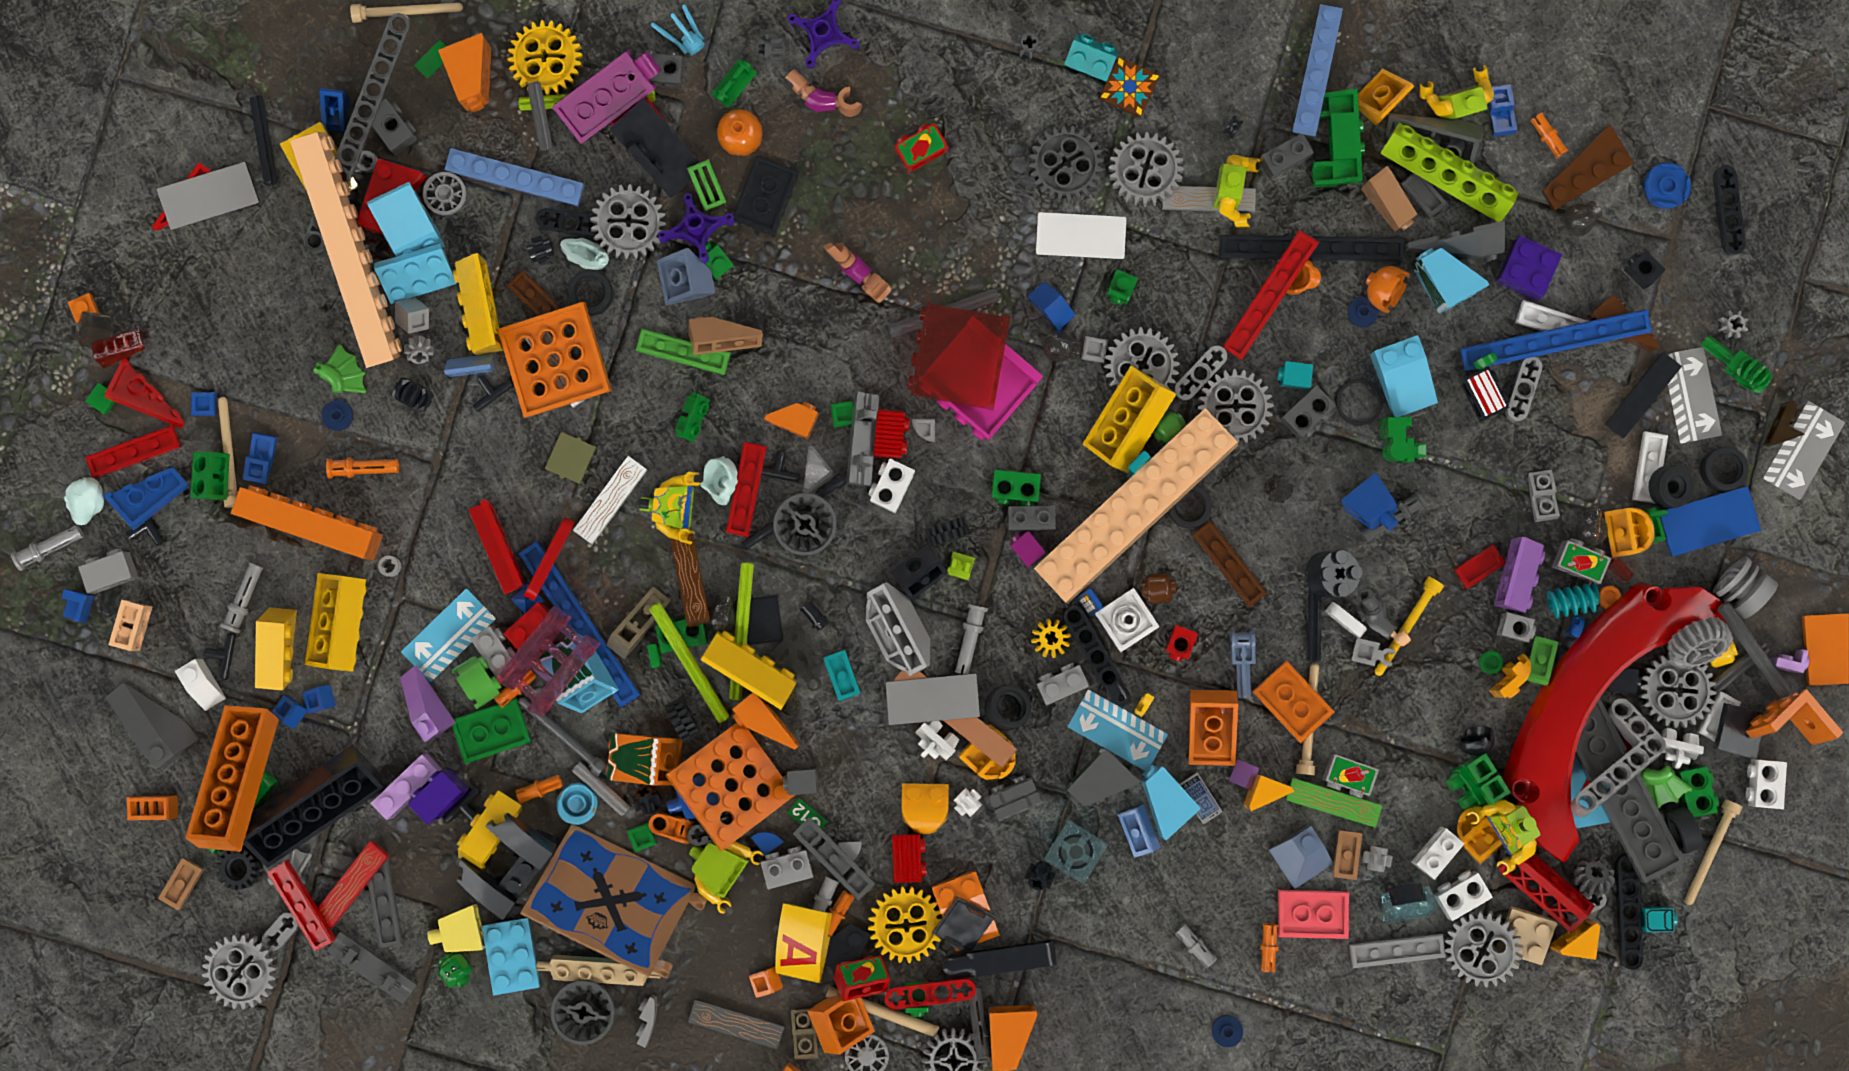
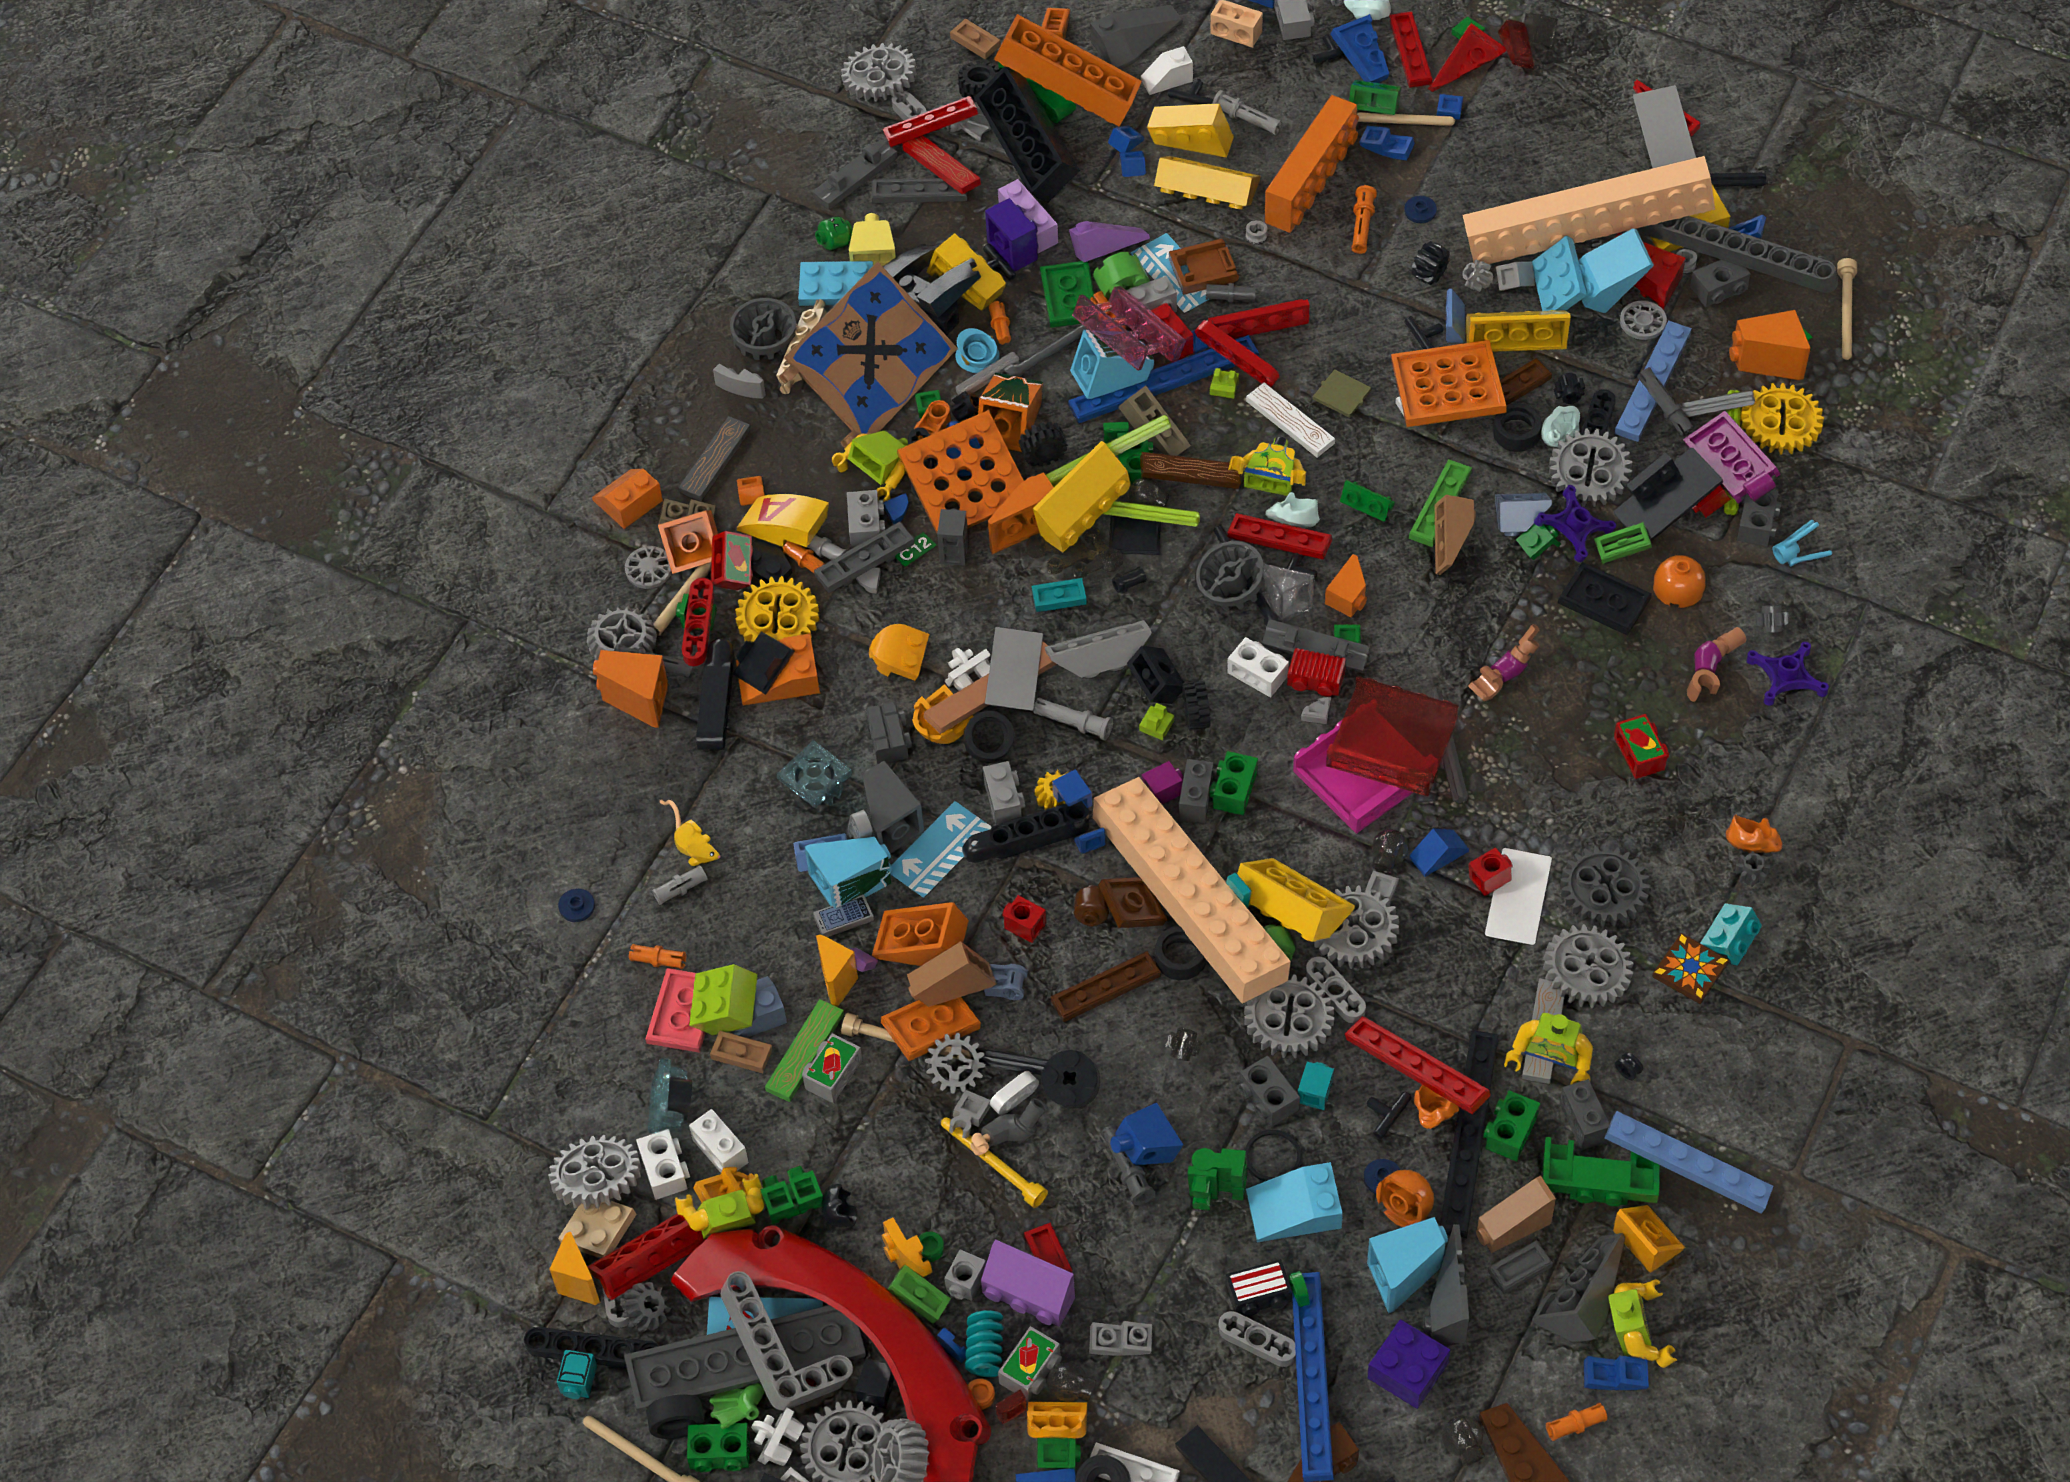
camera: 100 degrees right, 30 degrees down
(82, 303) = (1565, 27): orange plate -> none
(342, 372) = (1454, 212): bright green arm -> none
(440, 605) = (1206, 264): none -> dark orange container
(470, 578) = (1230, 292): none -> dark grey pin
(548, 159) = (1670, 408): none -> dark grey pin
(577, 567) = (1224, 383): none -> lime tile
(734, 83) = (1736, 583): green hinge -> none
(907, 858) = (847, 626): red brick -> none
(968, 802) = (894, 687): white gear -> none
(997, 45) = (1753, 836): none -> orange hair
(1040, 875) = (795, 741): black gear -> none
(1065, 621) = (1072, 789): none -> blue panel
(1068, 269) = (1486, 880): none -> red brick
(1121, 288) = (1449, 923): green bracket -> none
(1126, 620) = (1061, 870): white plate -> none
(1131, 798) = (859, 825): none -> light grey beam
(1143, 704) = (964, 874): yellow tile -> none
(1151, 947) = (691, 841): none -> yellow animal
(1152, 554) = (1132, 903): none -> reddish brown tile
(1260, 690) = (950, 976): none -> medium nougat slope
(1305, 207) = (1515, 1126): none -> green brick
(1306, 313) = (1390, 1113): none -> black piece
(1314, 878) = (723, 999): none -> lime brick
(1330, 673) = (954, 1075): none -> light grey gear
(1377, 858) = (728, 1079): light grey gear -> none
(1397, 950) = (618, 1088): light grey tile -> none
(1452, 183) = (1541, 1290): lime brick -> none
(1543, 318) = (1343, 1378): white tile -> none

